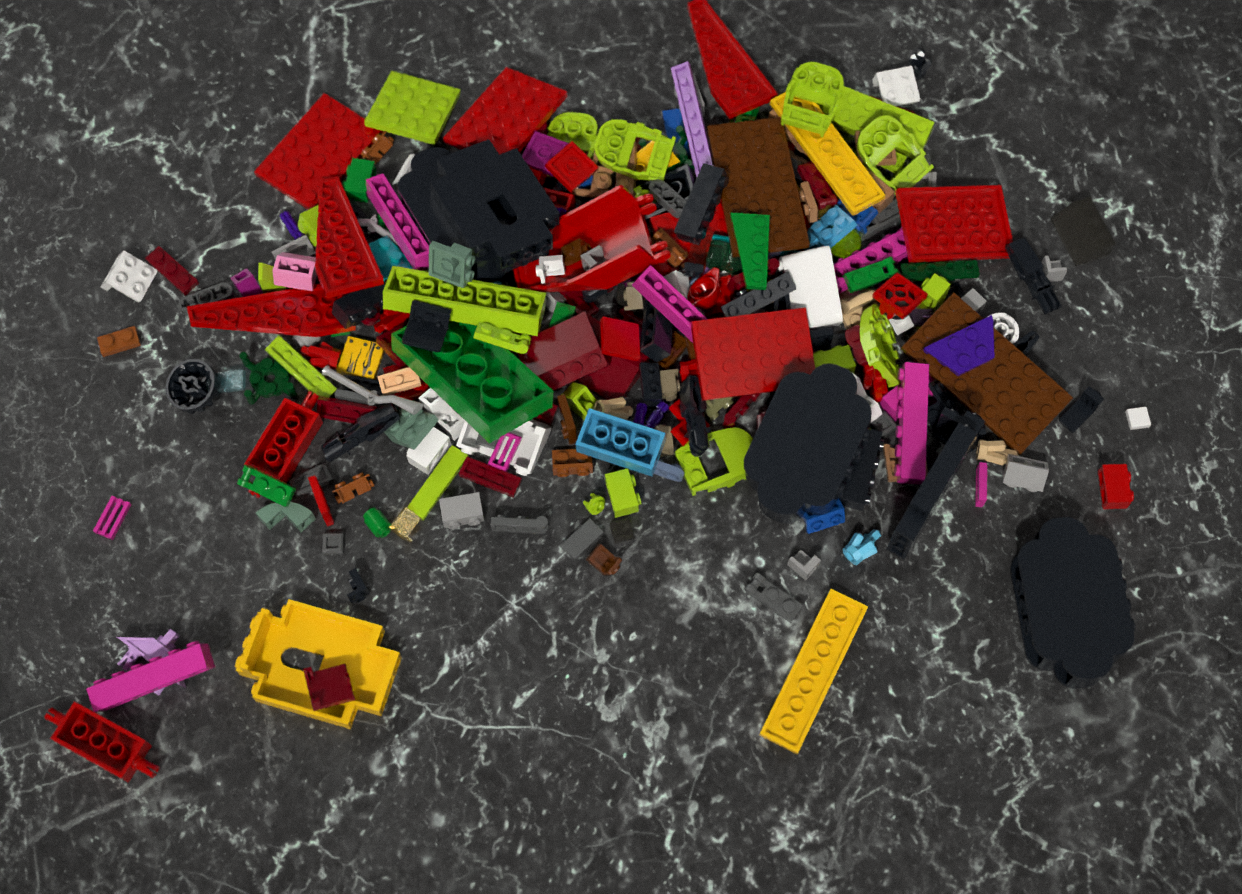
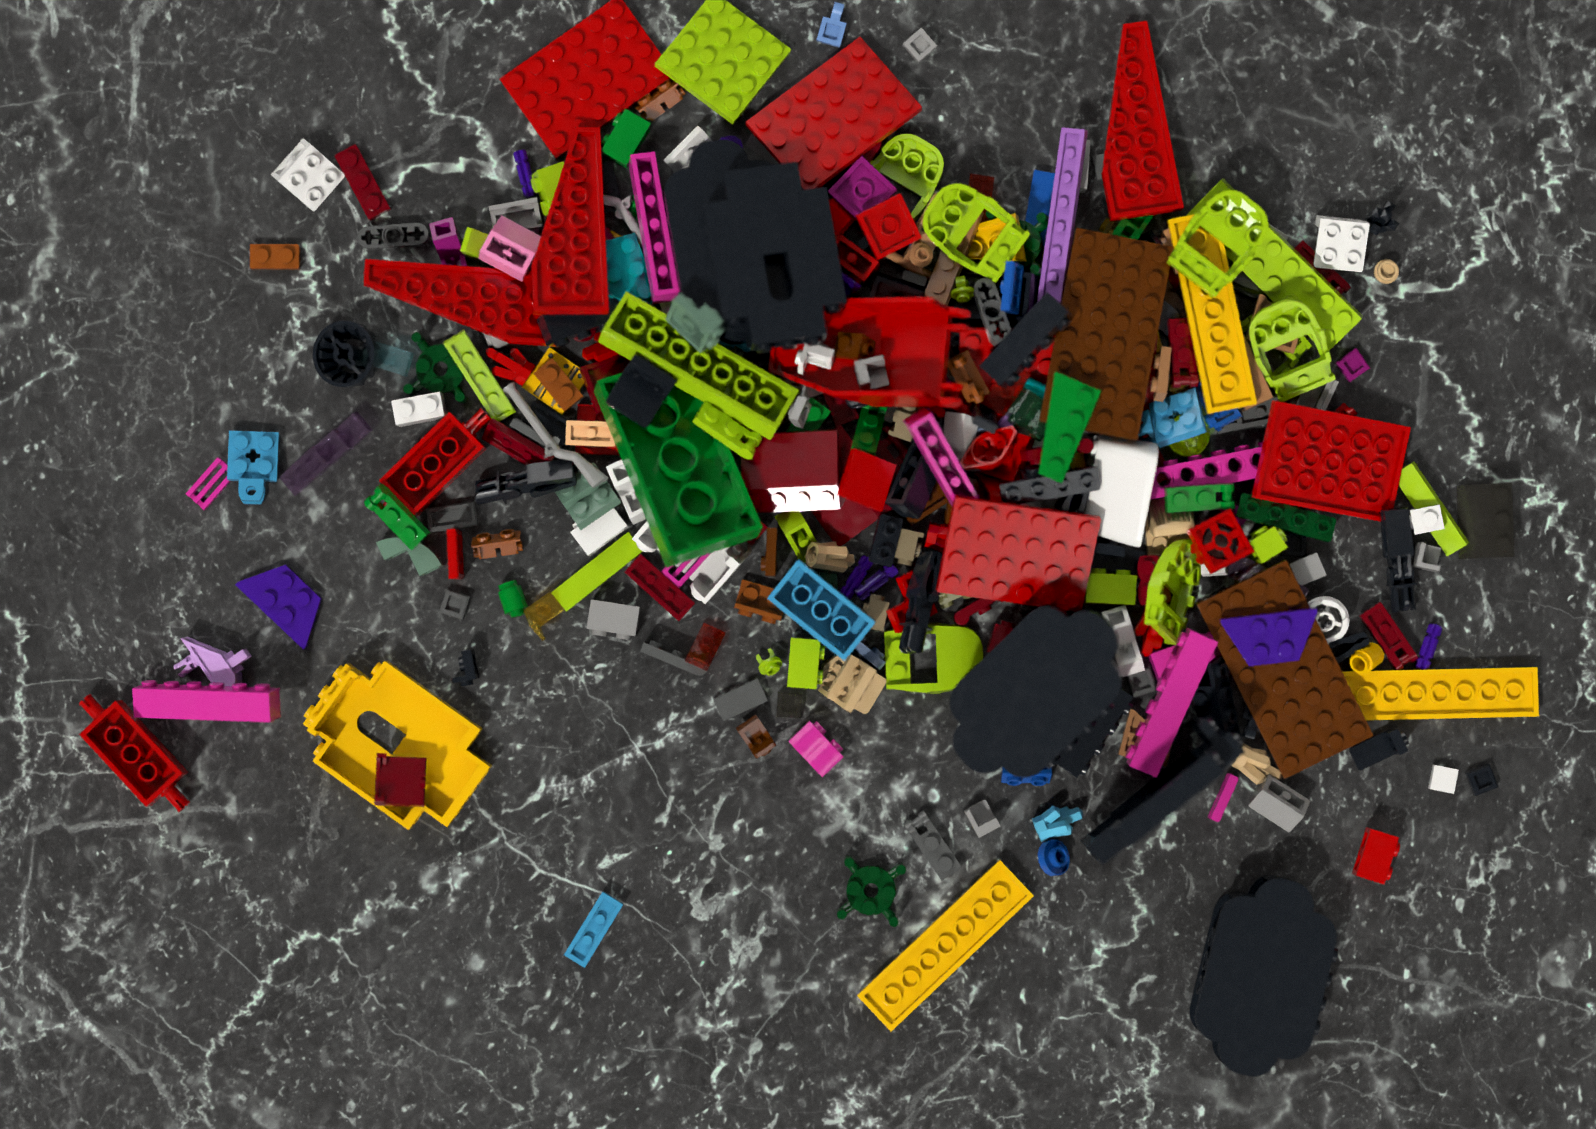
camera: 20 degrees right, 20 degrees up
(141, 499) = (252, 475): none -> dark azure plate
(195, 585) = (285, 601): none -> dark purple wing
(197, 466) = (325, 453): none -> clear purple slope
(260, 408) = (419, 409): none -> white brick
(363, 357) = (558, 385): none -> dark orange plate
(485, 67) = (832, 29): none -> medium blue plate
(526, 756) = (593, 929): none -> dark azure plate
(540, 506) = (705, 646): none -> clear red plate
(550, 59) = (919, 45): none -> light grey plate
(552, 309) = (799, 411): none -> light grey plate
(608, 307) = (869, 429): none -> green plate
(654, 553) = (816, 747): none -> dark pink brick
(664, 494) = (851, 683): none -> tan piece
(676, 176) = (1011, 287): none -> blue plate
(743, 637) = (871, 905): none -> dark green plate
(871, 572) = (1053, 857): none -> blue plate
(936, 98) = (1386, 271): none -> tan plate
(941, 164) = (1352, 365): none -> magenta tile
(1041, 237) = (1422, 495): none -> lime tile
(1041, 241) = (1426, 519): none -> white bracket
(1042, 349) = (1367, 658): none -> yellow brick
(1051, 332) = (1388, 636): none -> dark red plate
(1083, 330) = (1428, 647): none -> dark purple axle
(1114, 355) = (1446, 693): none -> yellow plate
(1166, 409) = (1481, 780): none -> black tile

